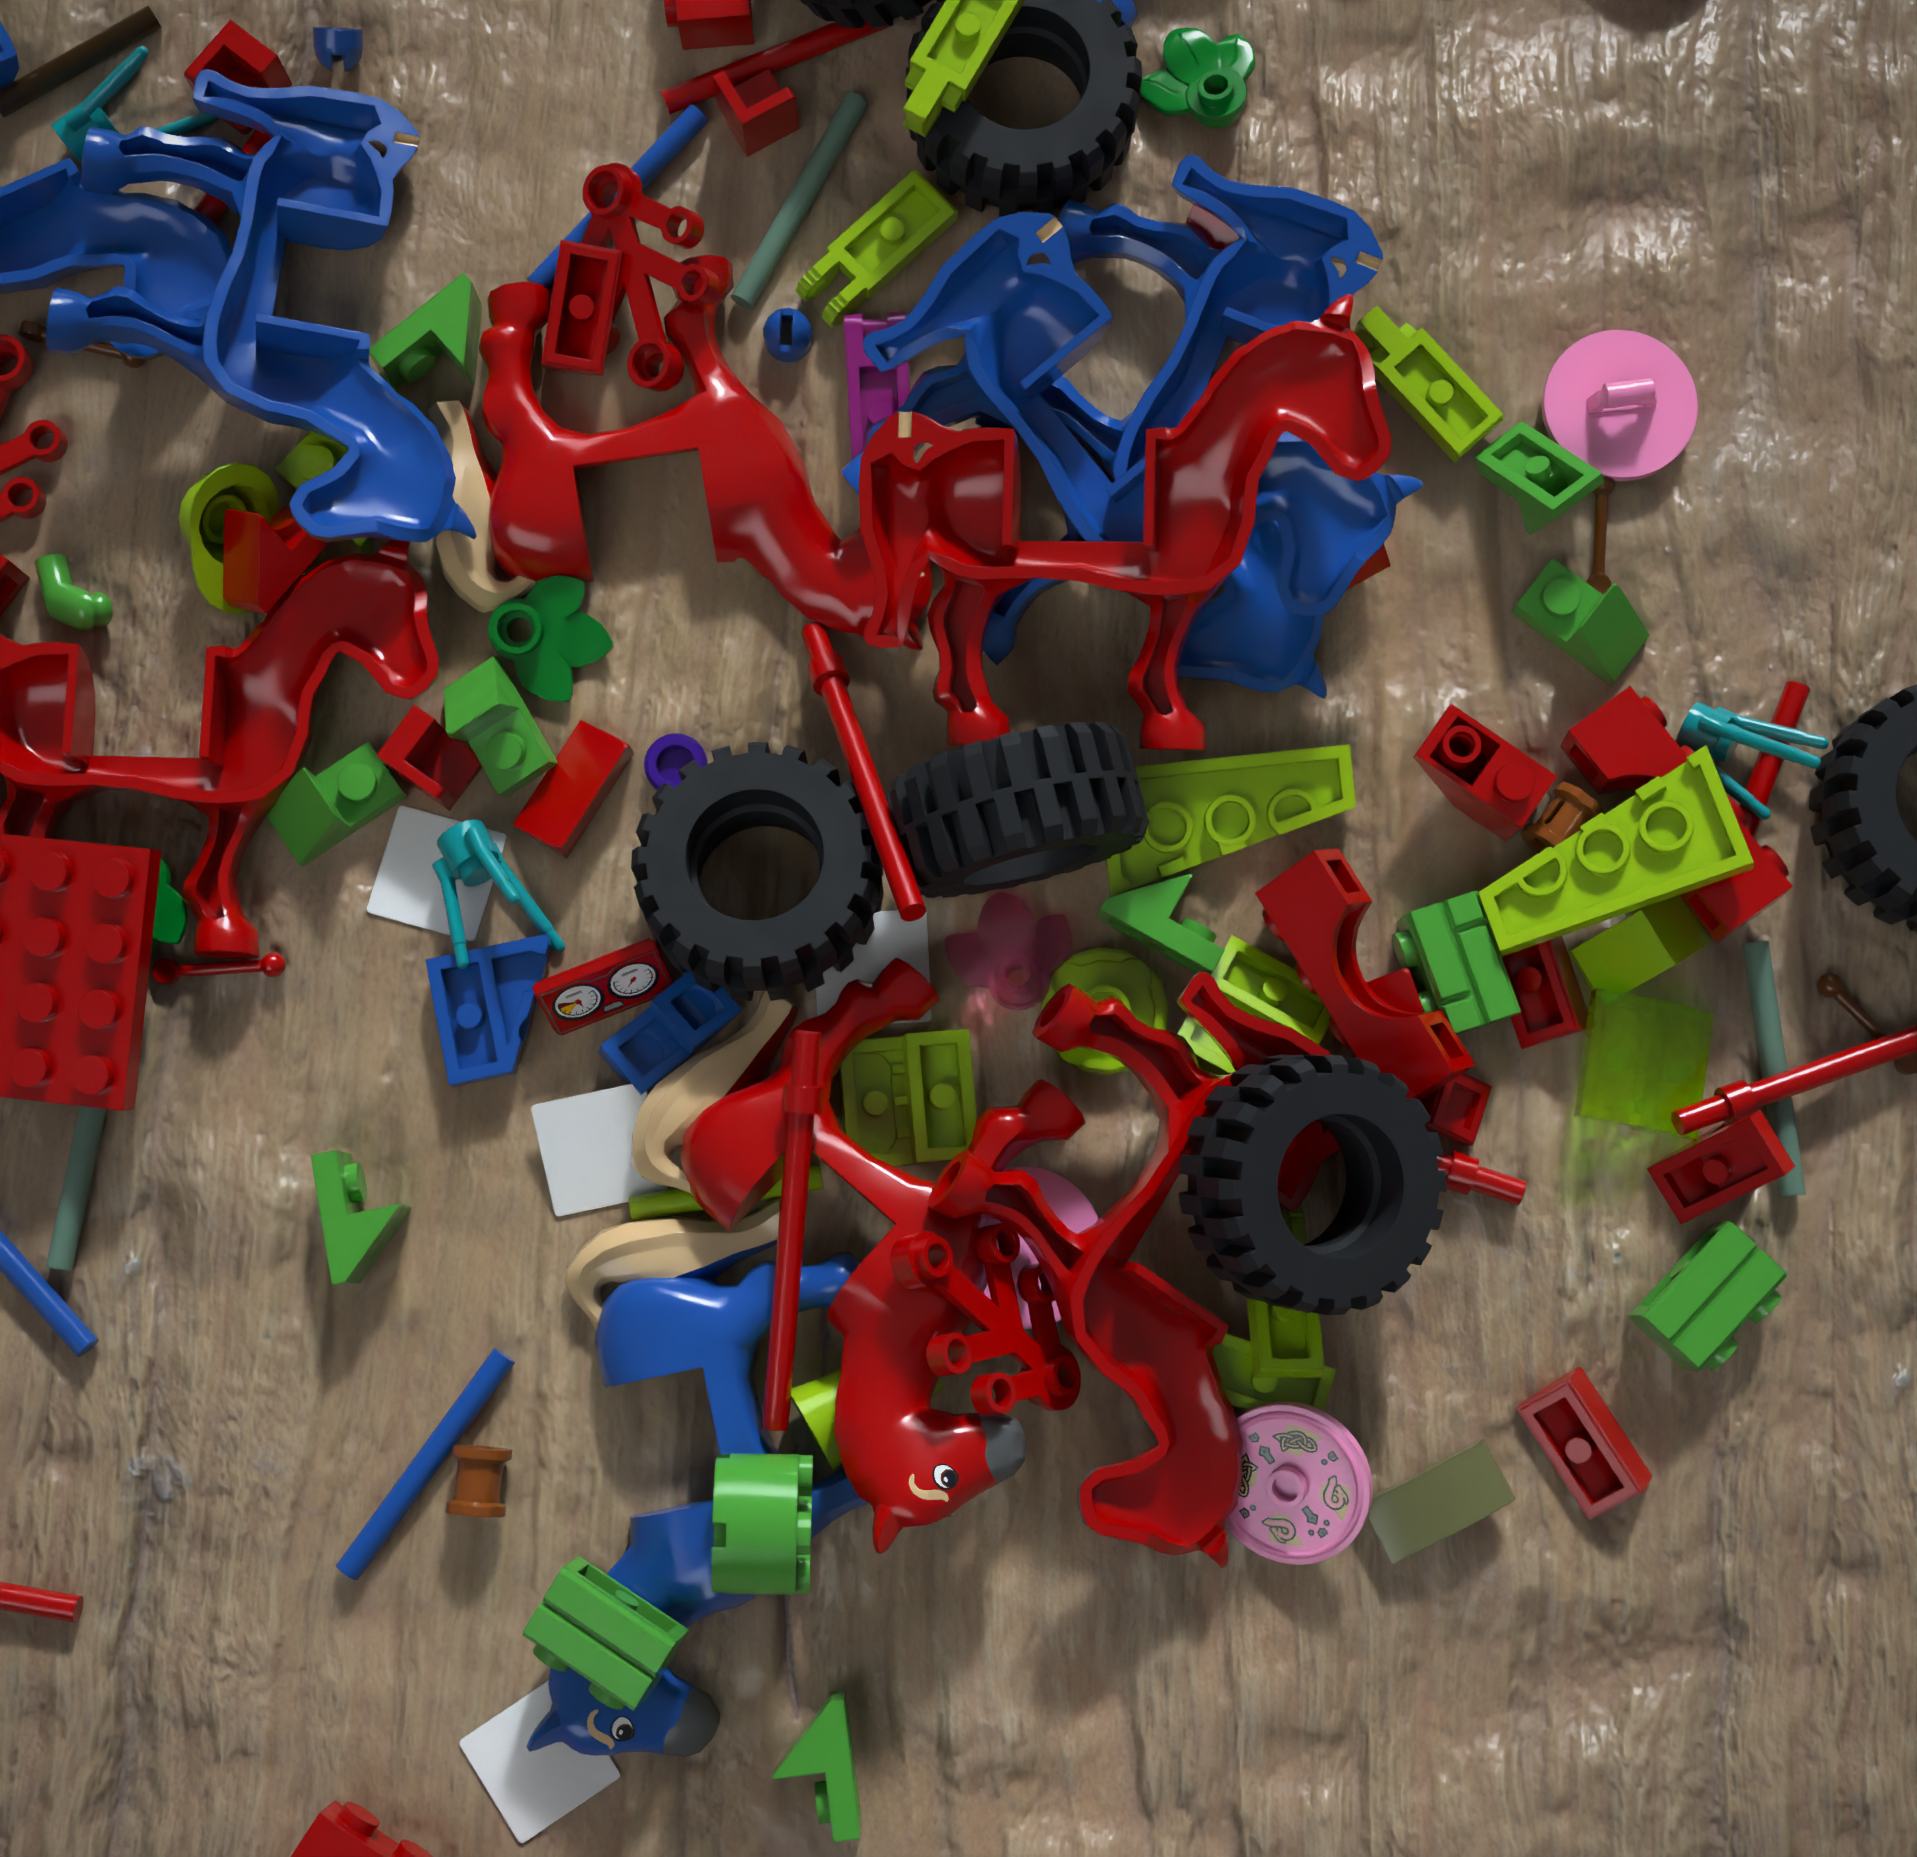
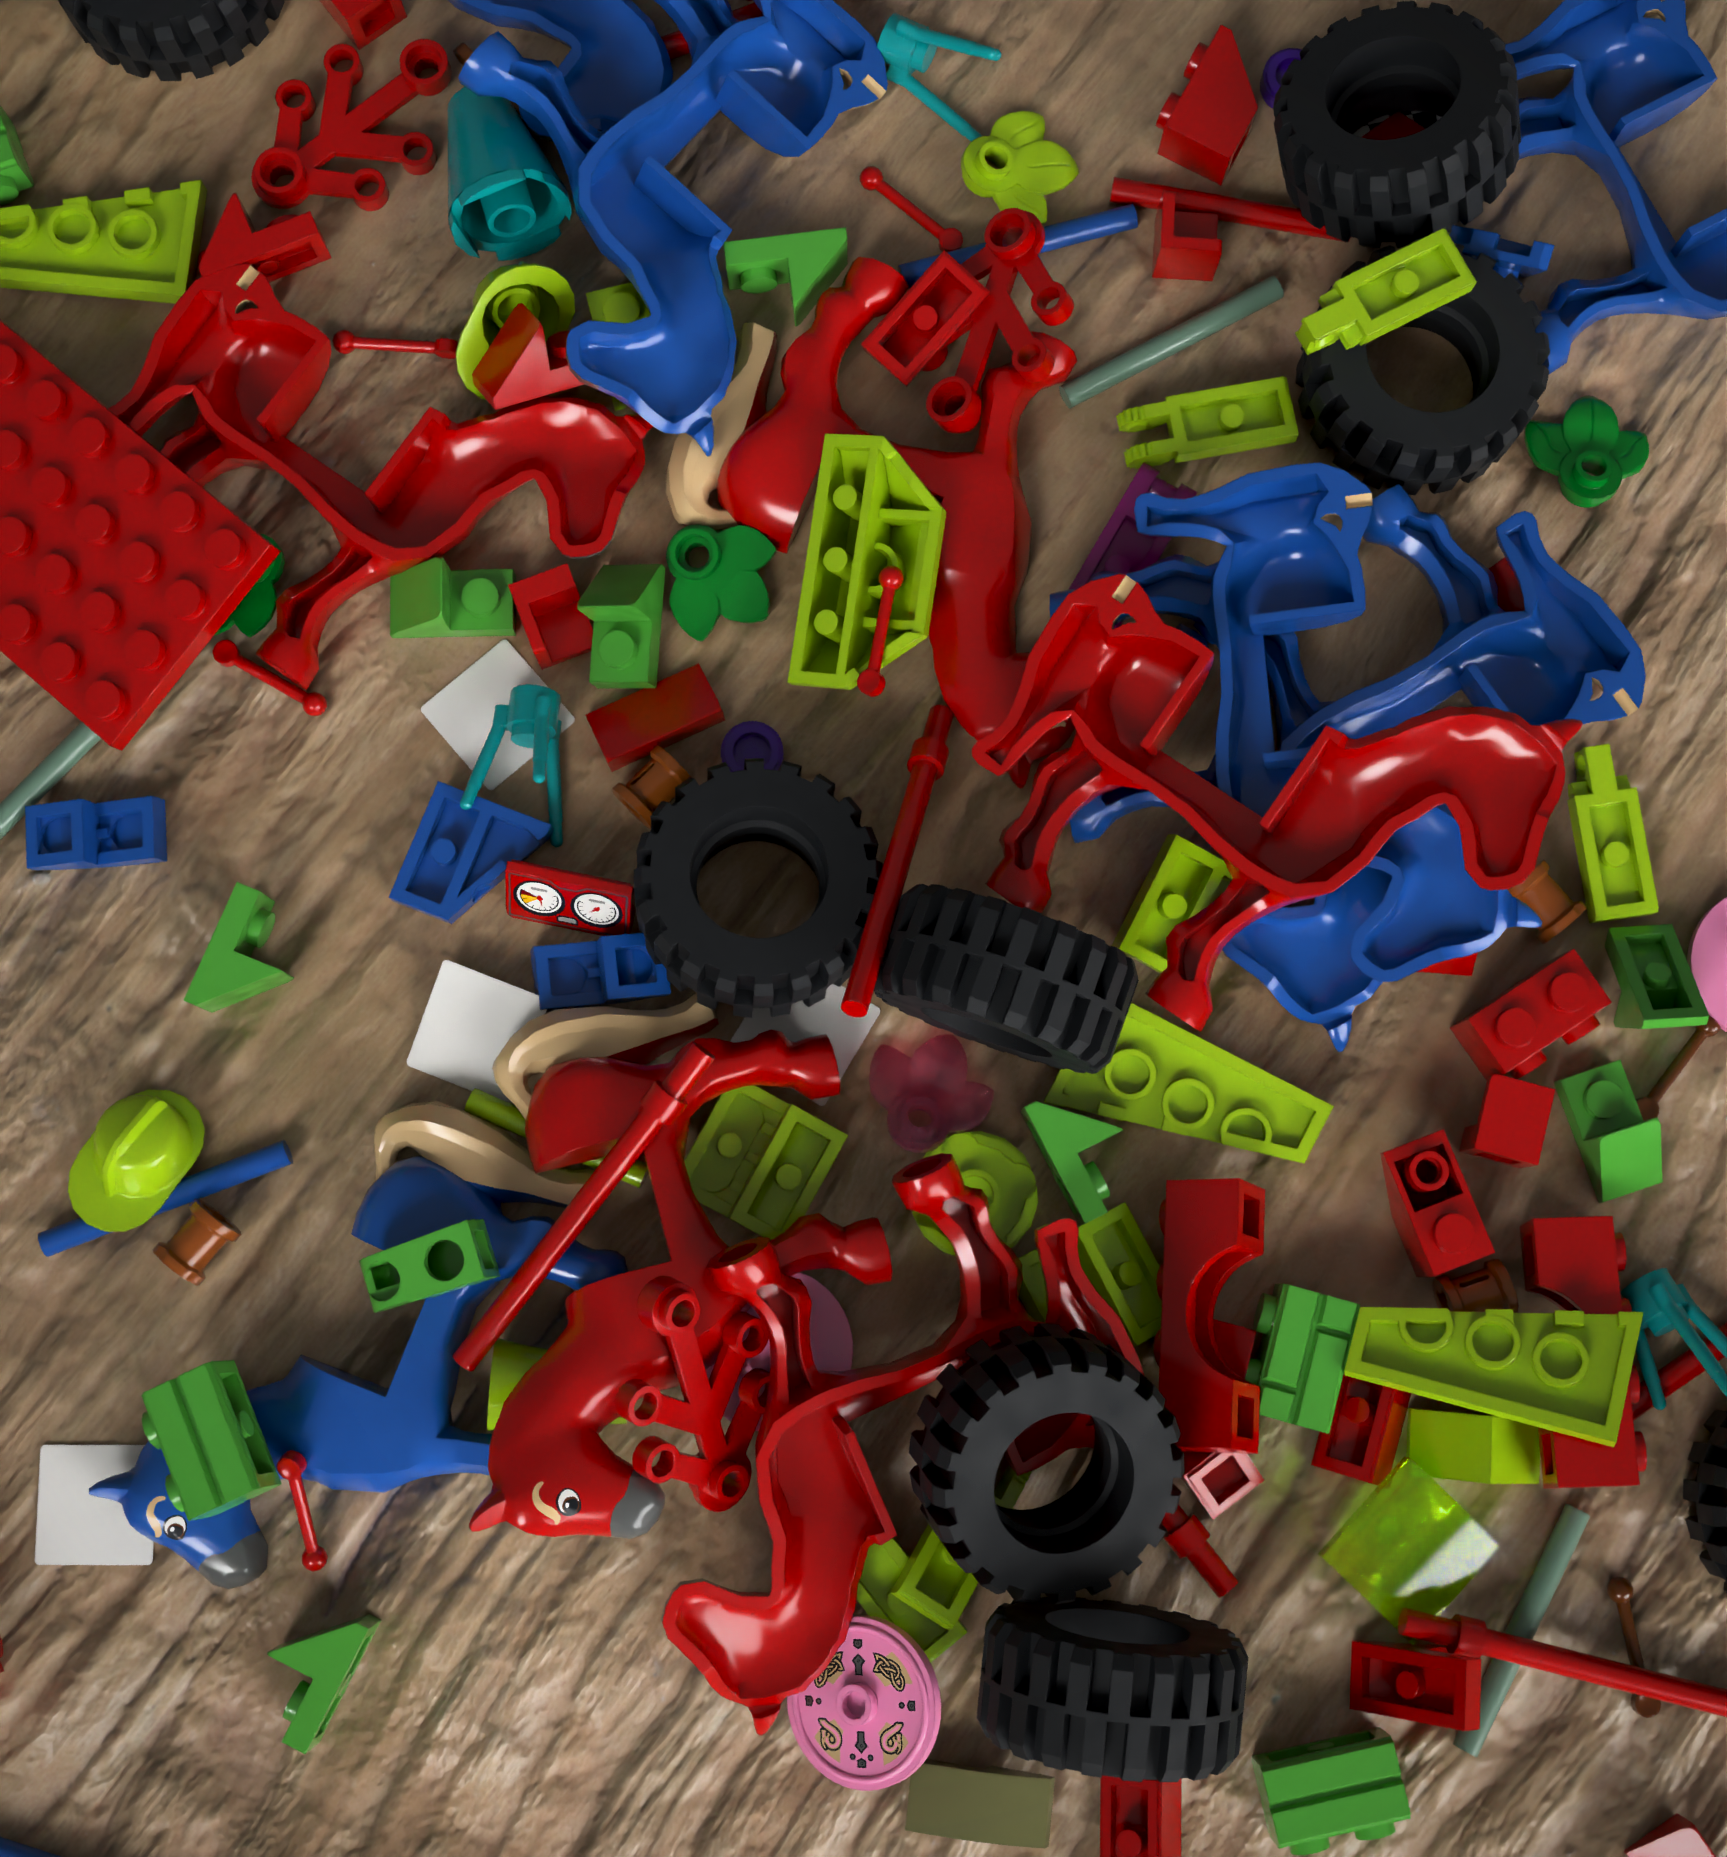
camera: 35 degrees right, 0 degrees up
(67, 602) = (346, 297): bright green arm -> none
(93, 640) = (346, 342): none -> red hinge
(136, 417) = (499, 181): none -> teal cone
(157, 1197) = (95, 834): none -> blue slope
(378, 1448) = (135, 1159): none -> lime piece
(416, 85) = (912, 47): none -> teal plant
(555, 229) = (949, 239): none -> red hinge
(579, 127) = (1025, 164): none -> lime plate
(611, 847) = (651, 785): none -> dark orange bush
(670, 543) = (864, 518): none -> lime wedge
(689, 1611) = (291, 1467): none -> red hinge
(695, 1364) = (430, 1265): none -> bright green leg
(740, 637) = (871, 681): none -> red hinge
(762, 1524) = (392, 1437): bright green brick -> none
(801, 335) = (1096, 457): blue hinge -> none
(1104, 649) = (1175, 889): none -> lime wing
(1417, 464) = (1548, 901): none -> dark orange bush
(1458, 568) = (1532, 1014): none -> red brick
(1486, 1329) = (1112, 1689): none -> black tyre
(1499, 665) = (1510, 1122): none -> red panel

